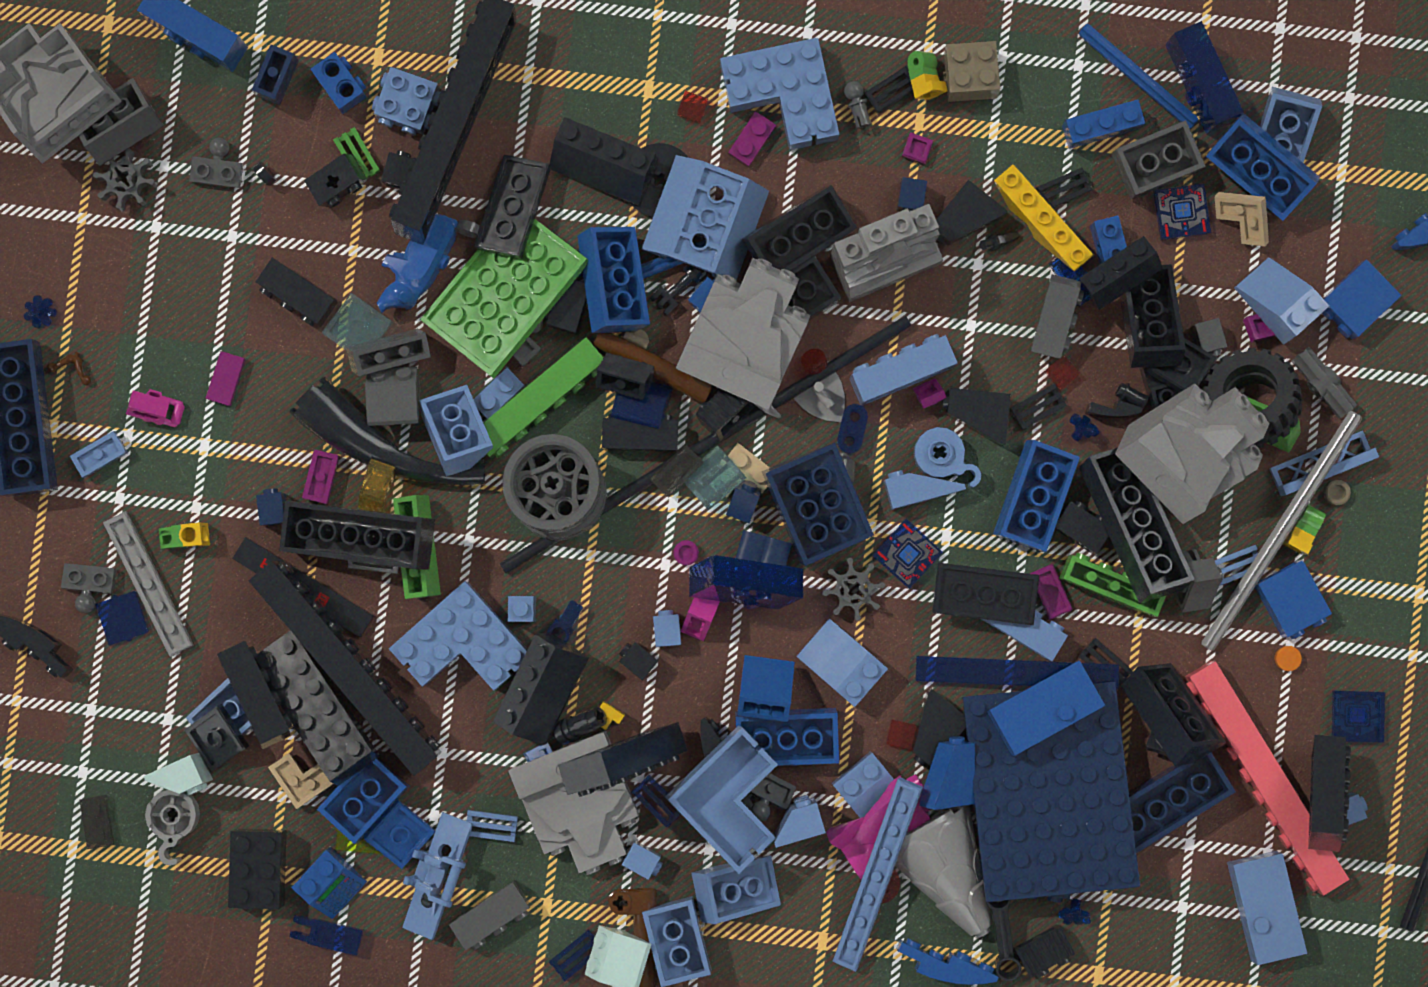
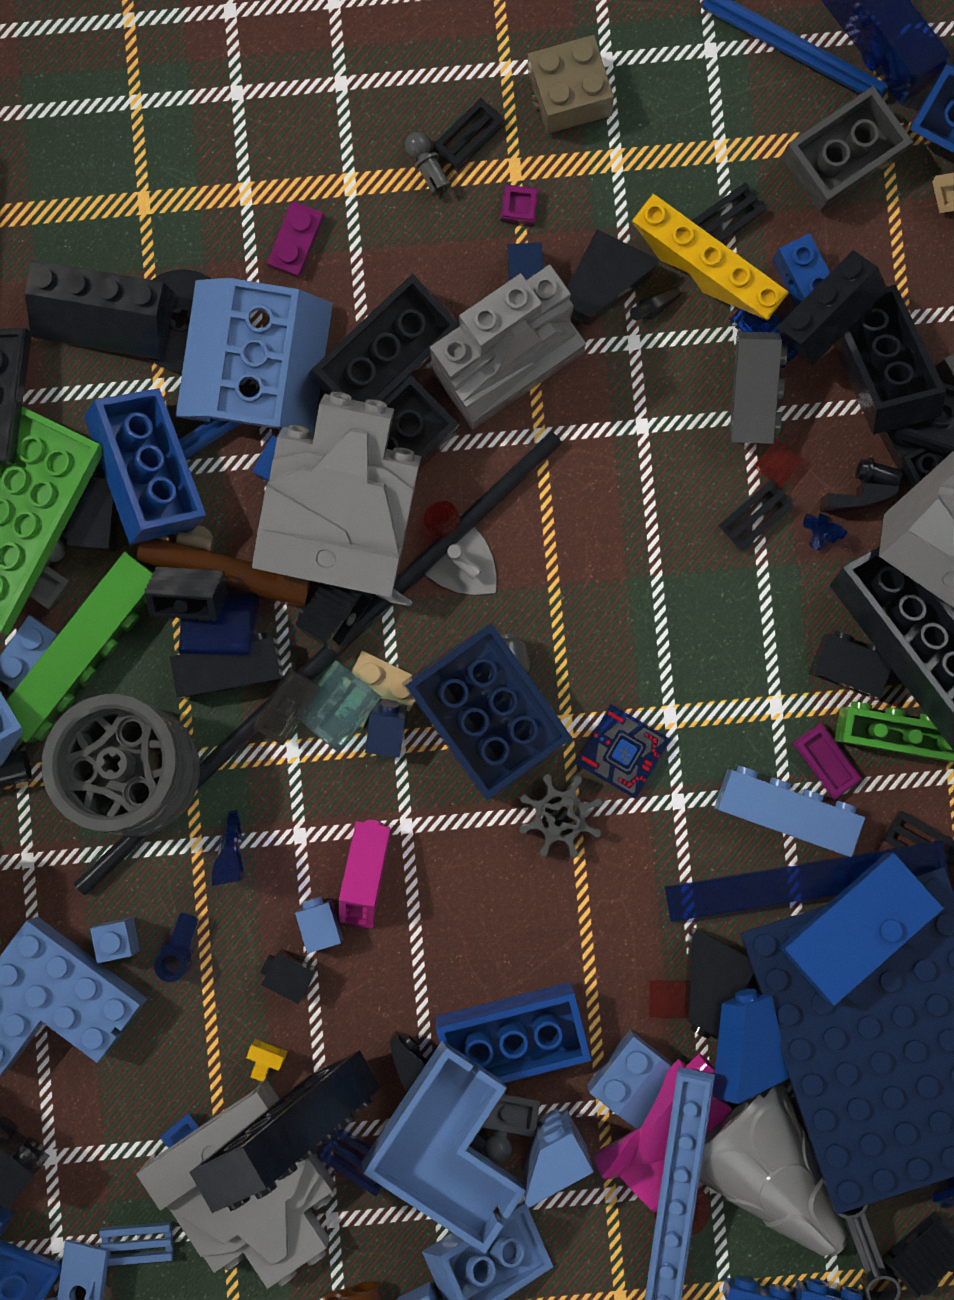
camera: 10 degrees left, 0 degrees up
(541, 688) = (160, 1046): black slope -> none
(573, 727) = (222, 1085): black axle -> none
(615, 566) = (228, 862): none -> clear blue slope
(642, 860) = (352, 1249): medium blue brick -> none
(686, 552) = (323, 814): magenta tile -> none
(692, 107) = (206, 213): clear red tile -> none
(692, 273) = (227, 474): black hinge -> none
(745, 582) = (410, 841): clear blue brick -> none
(763, 549) = (427, 791): dark blue brick -> none
(766, 688) = (469, 980): blue brick -> none
(787, 76) = (329, 145): medium blue piece -> none
(842, 662) = (566, 919): medium blue slope -> none
(852, 429) = (512, 598): clear blue plate -> none
(903, 370) = (564, 504): medium blue brick -> none
(914, 488) = (613, 661): medium blue slope -> none
(925, 76) = (508, 104): leg -> none
(929, 393) = (606, 528): magenta plate -> none
(954, 455) = (657, 613): medium blue piece -> none
(980, 411) = (679, 538): black slope -> none
(985, 593) = (741, 785): black tile -> none
(1036, 495) = (780, 635): blue brick -> none
(1103, 124) = (762, 117): blue brick -> none
(1182, 212) = (891, 213): clear blue tile -> none

